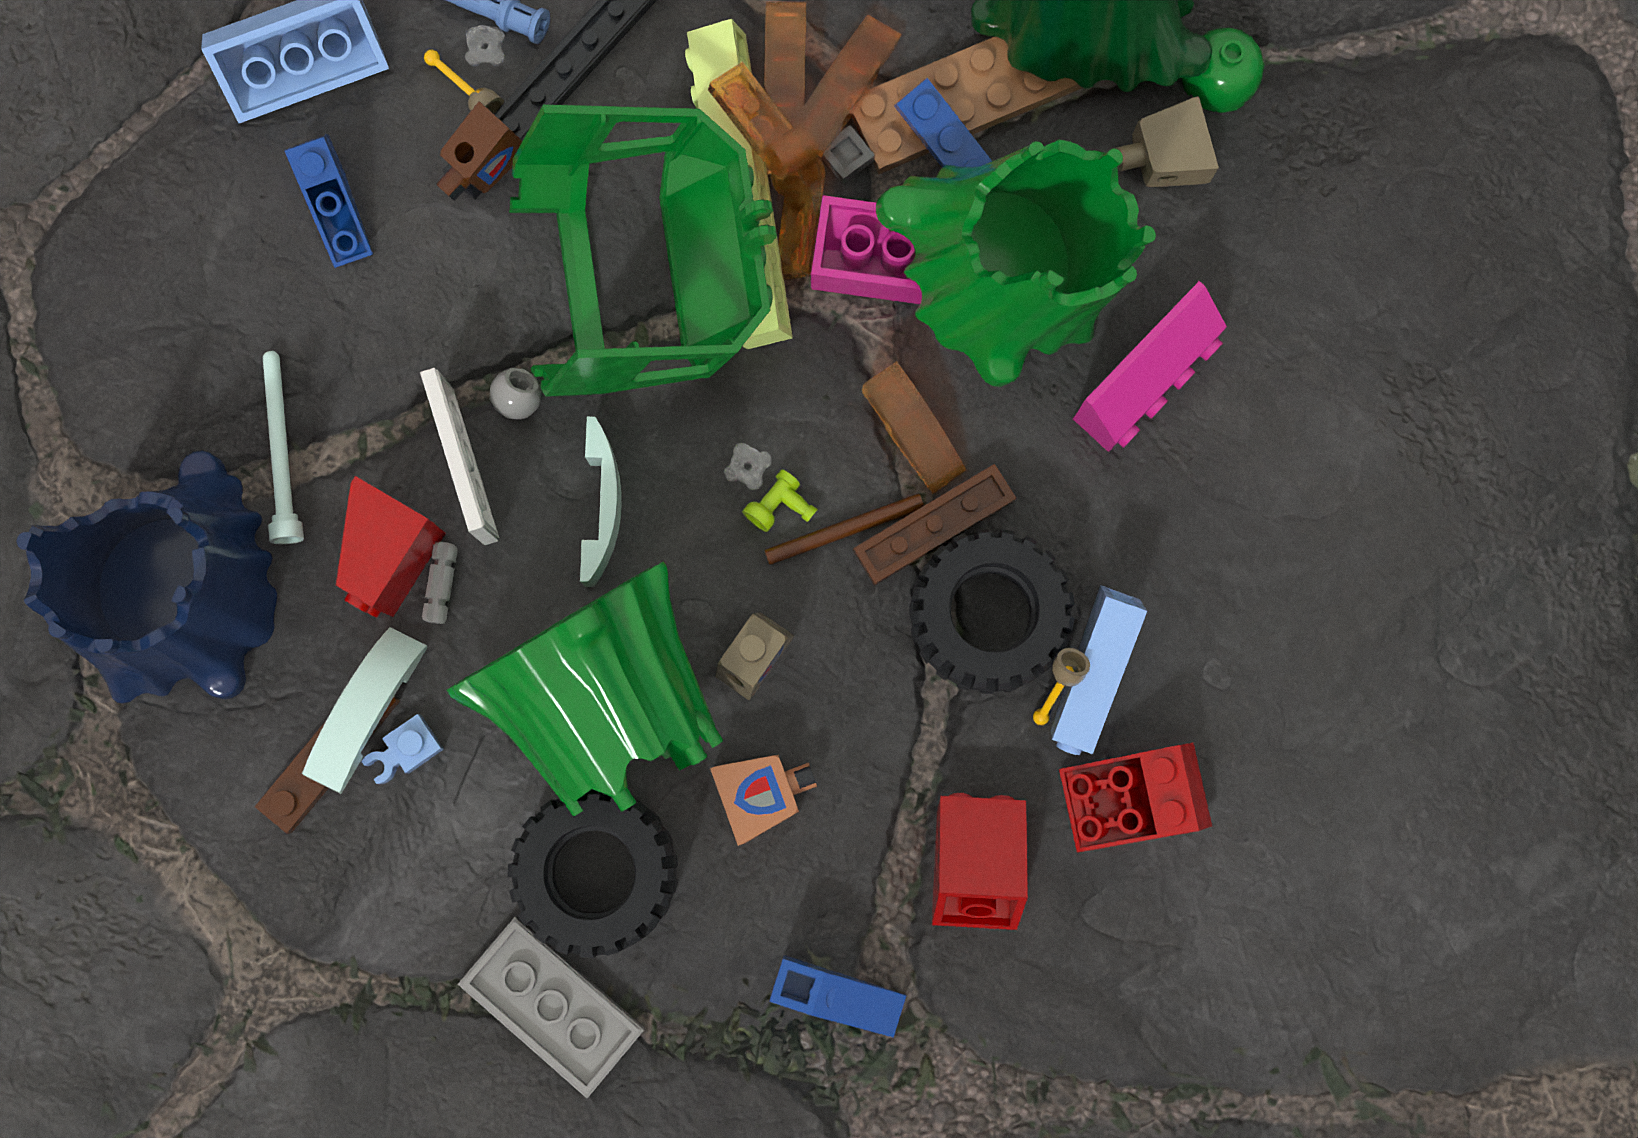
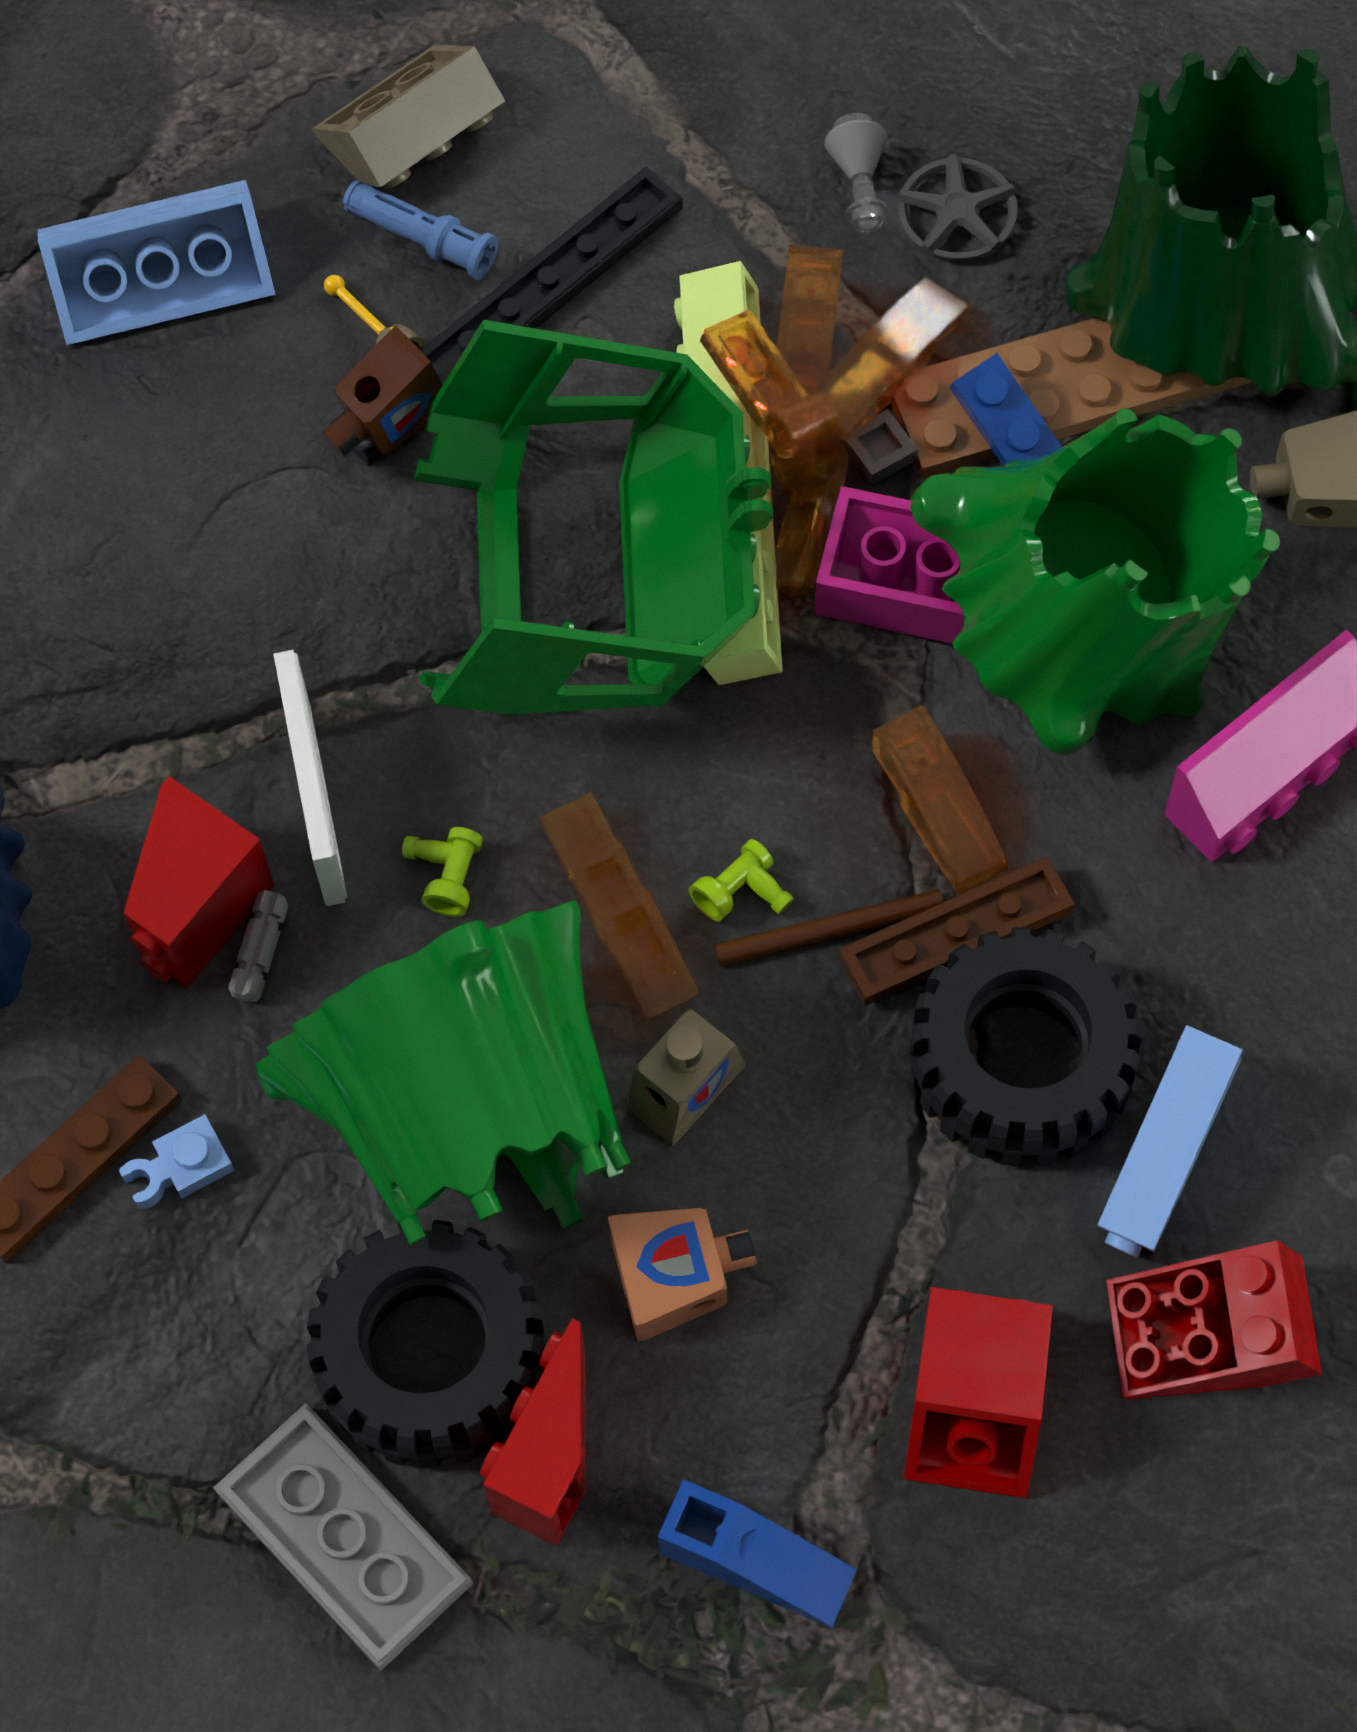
camera: 10 degrees right, 15 degrees down
(285, 524) = (57, 854): light aqua piece -> none
(329, 199) = (176, 446): blue slope -> none
(361, 708) = (125, 1097): light aqua slope -> none
(485, 35) = (403, 263): clear plate -> none
(515, 393) = (394, 708): light grey piece -> none
(573, 500) = (446, 895): none -> lime piece
(597, 553) = (501, 801): light aqua slope -> none
(688, 947) = (542, 1466): none -> red slope
(693, 528) = (619, 906): none -> clear orange slope
(745, 454) = (698, 817): clear plate -> none
(1069, 670) = (1126, 1122): dark tan hinge -> none

